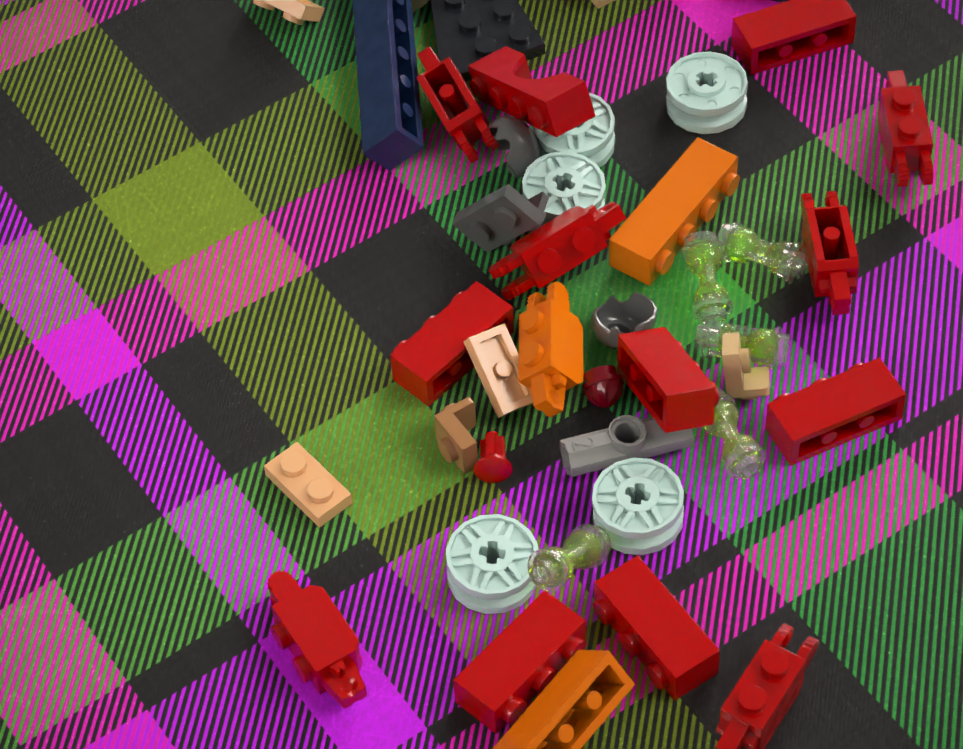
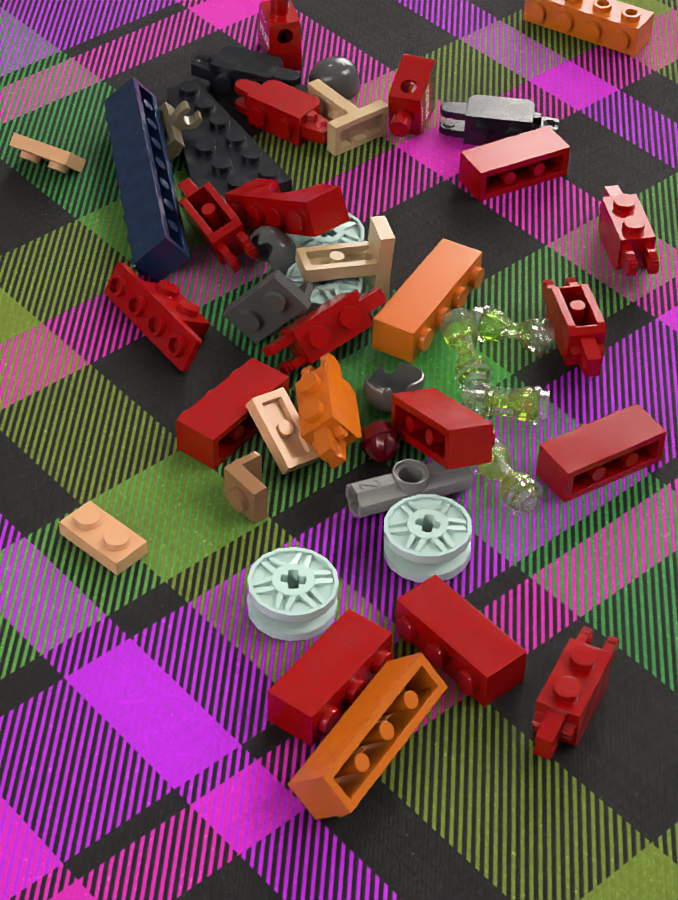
camera: 10 degrees left, 10 degrees down
(318, 638) = (124, 666): red hinge -> none
(388, 214) = (159, 313): none -> red bracket
(493, 465) = (283, 511): red piece -> none
(582, 549) = (356, 586): clear piece -> none
(593, 163) = (352, 260): none -> tan bracket
(706, 92) = (443, 210): light aqua wheel -> none
(740, 378) = (506, 421): tan bracket -> none

